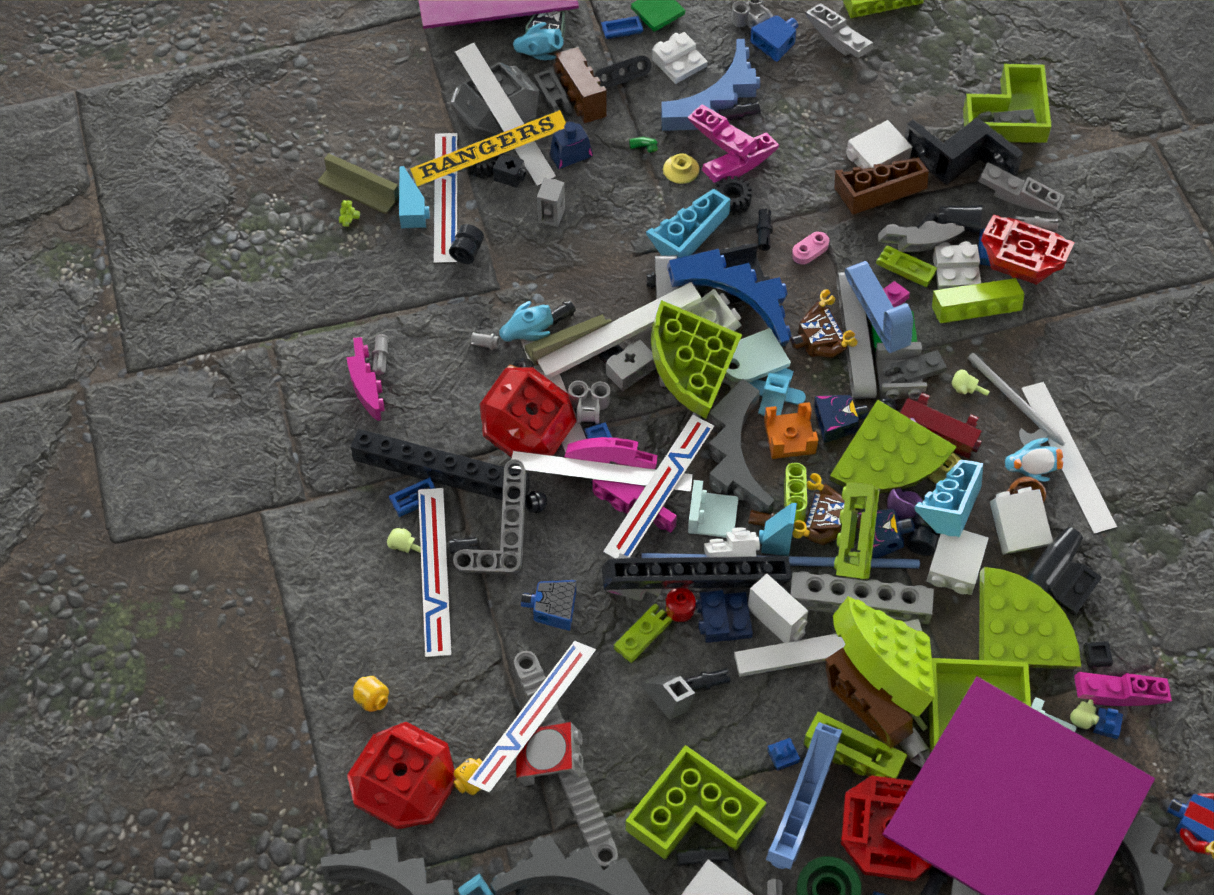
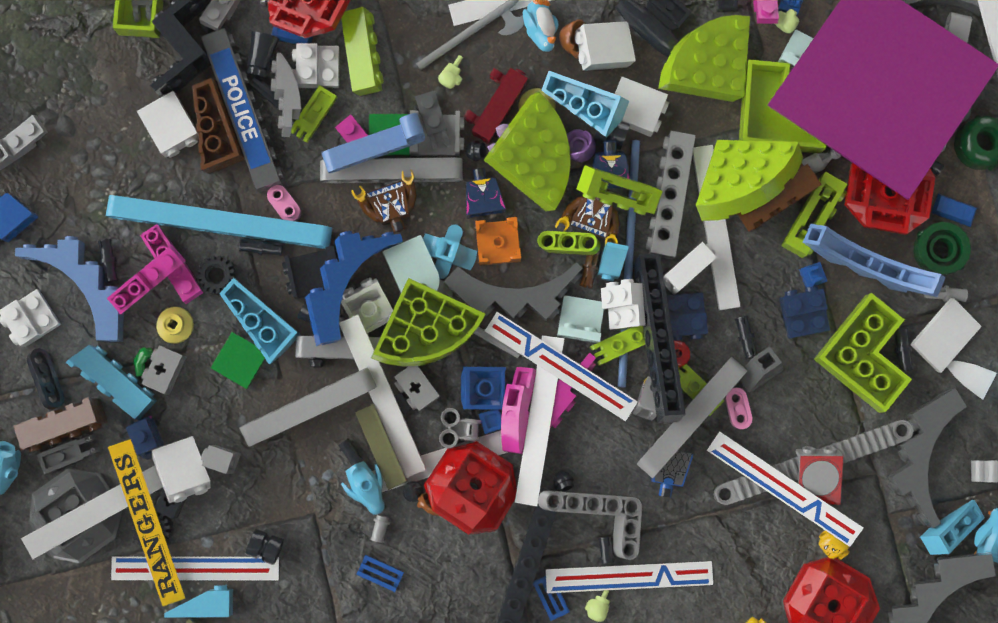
camera: 90 degrees left, 25 degrees up
(446, 330) = (396, 580): none -> blue tile
(534, 165) = (181, 470): none -> white brick
(606, 268) = (308, 407): none -> light grey beam
(611, 615) = (696, 413): none -> light grey beam
(622, 673) = (737, 408): none -> bright pink plate
(623, 118) = (113, 380): none -> medium azure wedge
(633, 421) = (482, 387): none -> blue slope
(636, 158) = (170, 361): none -> light grey brick
(647, 214) = (239, 360): none -> green tile
(683, 541) = (619, 344): none -> lime hinge
(739, 743) = (804, 312): none -> dark blue plate
(786, 194) = (218, 222): none -> medium azure beam
(900, 206) = (242, 110): none -> brick

